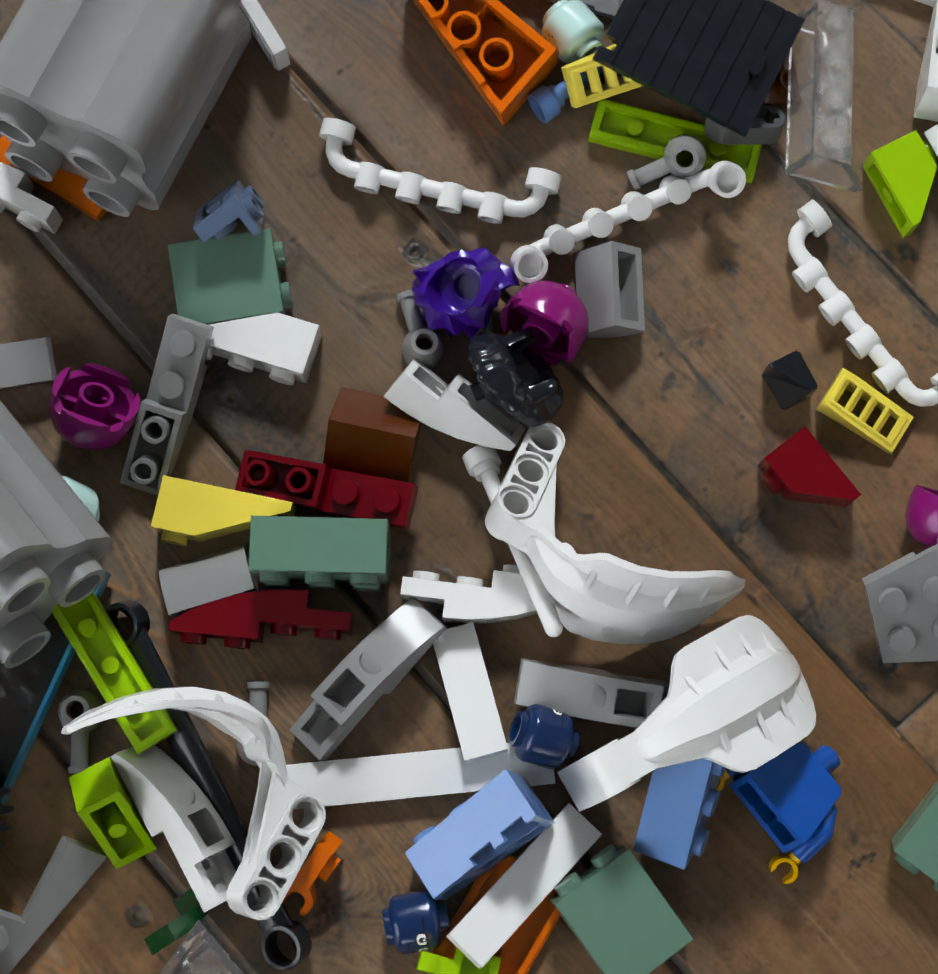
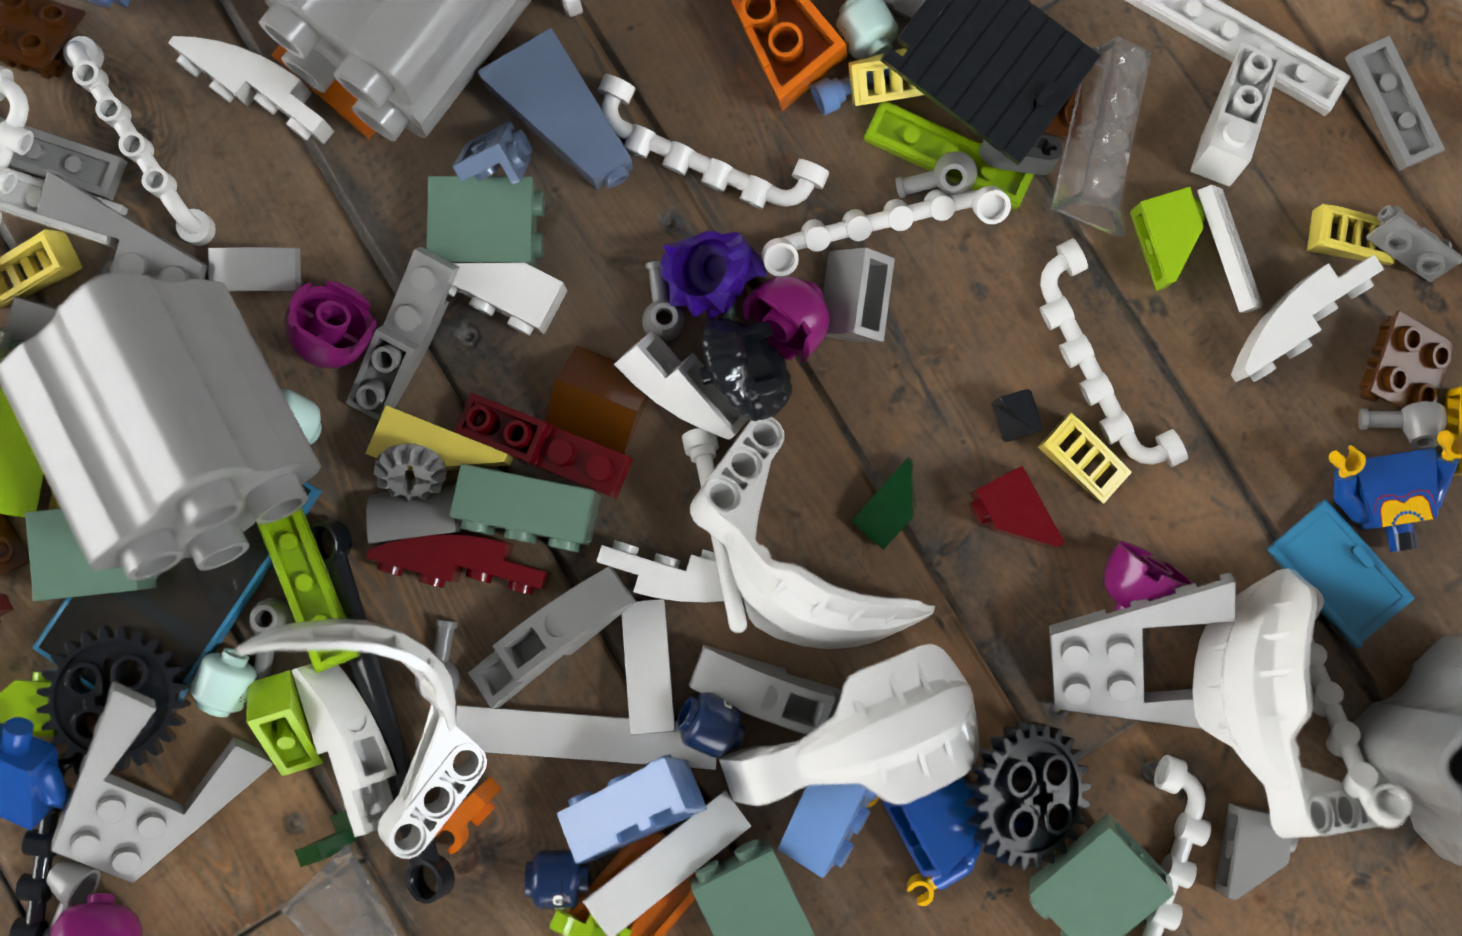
camera: 10 degrees right, 5 degrees up
(43, 782) = (222, 683): none -> light aqua head
(182, 529) = (425, 463): none -> light grey gear
(282, 157) = (554, 102): none -> sand blue slope
(681, 492) = (889, 507): none -> dark green slope
(873, 750) = (1028, 795): none -> black gear

